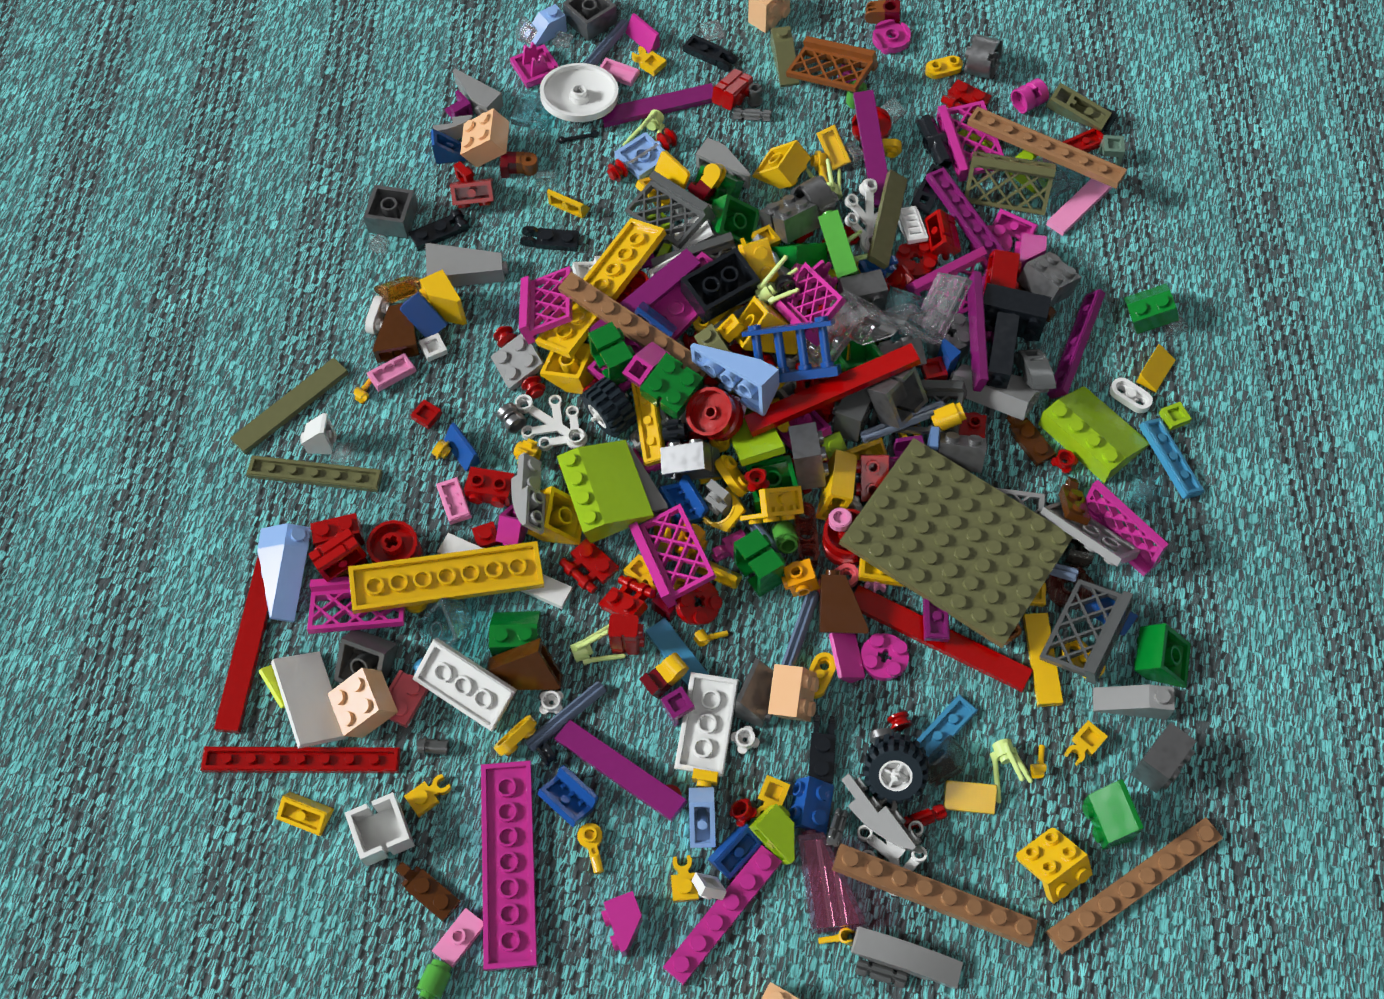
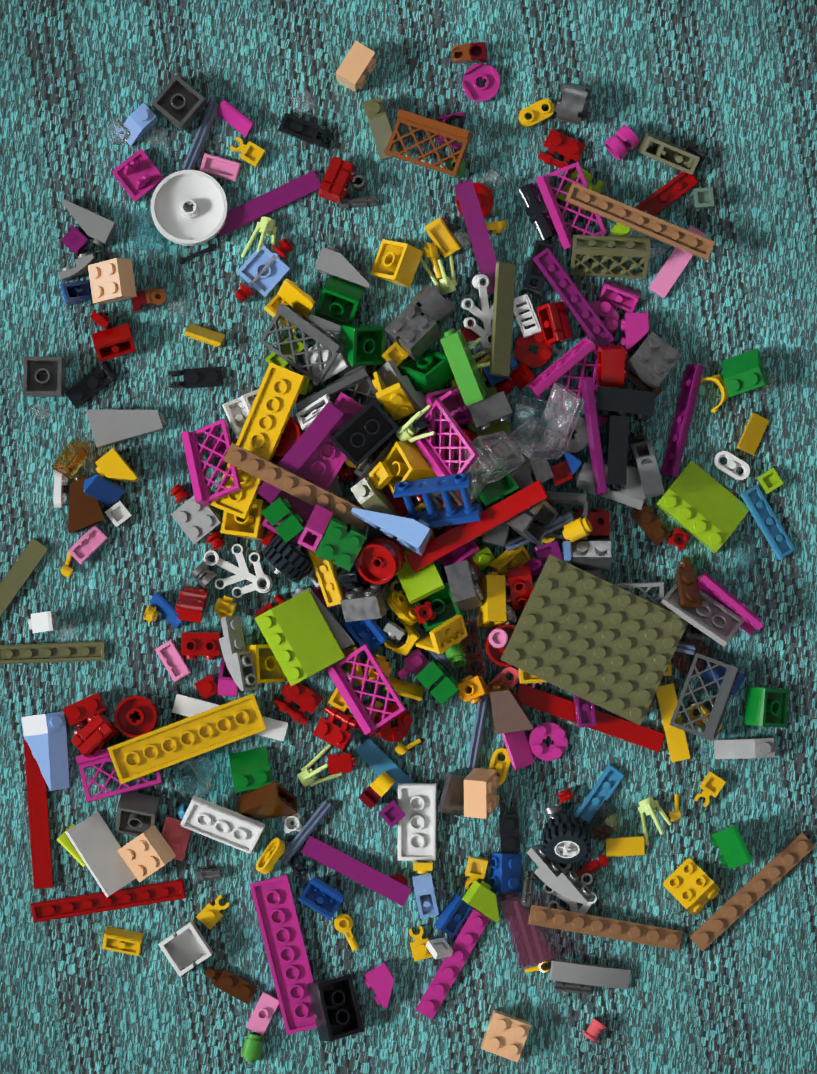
camera: 10 degrees left, 25 degrees up
(426, 414) = (129, 582): red plate -> none
(490, 440) = (192, 603): none -> red brick
(555, 939) = (335, 1007): none -> black brick
(655, 319) = (314, 475): blue slope -> none
(713, 176) = (329, 311): leg -> none
(739, 807) = (450, 886): red plate -> none
(745, 732) = (453, 828): white plate -> none
(1117, 313) = (717, 379): none -> yellow helmet
(1165, 759) = (768, 796): flat silver brick -> none

